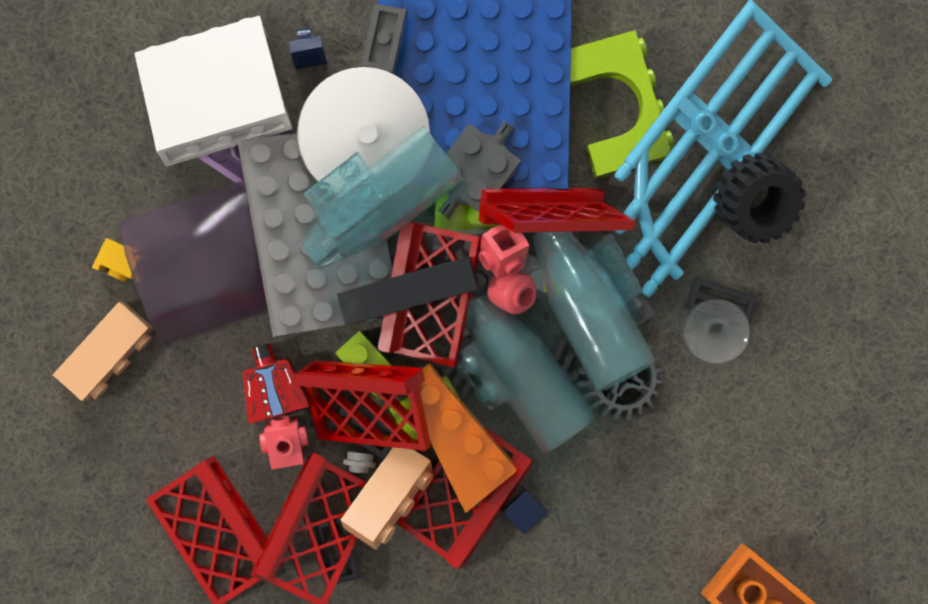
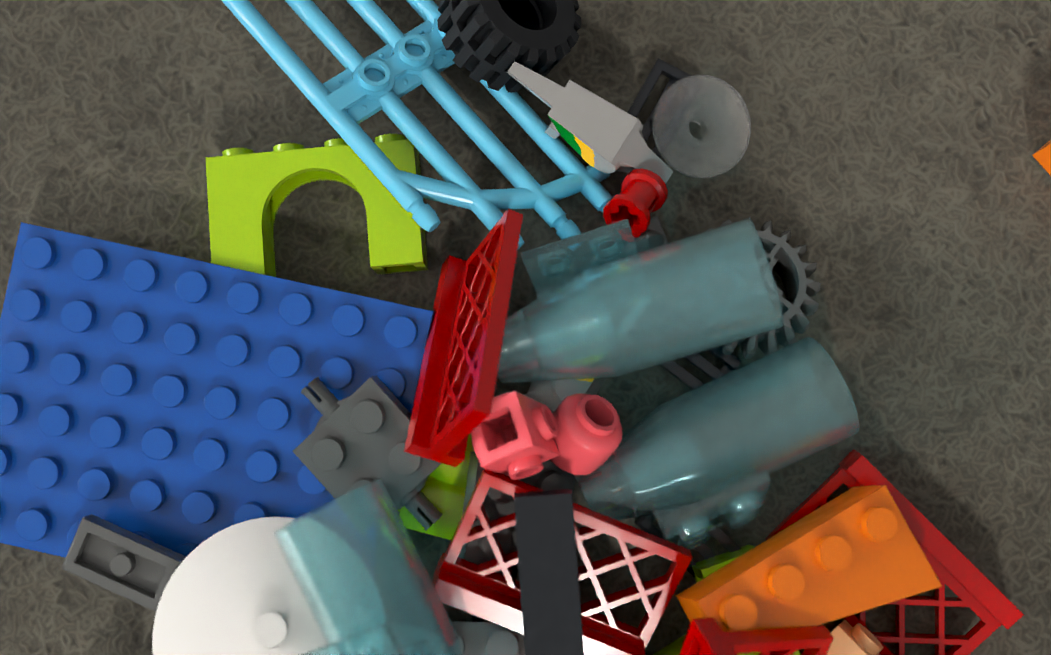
camera: 70 degrees left, 5 degrees down
(524, 511) = (932, 483): dark blue slope -> none
(659, 298) = (639, 197): none -> red bush
(698, 264) = (592, 126): none -> light grey animal

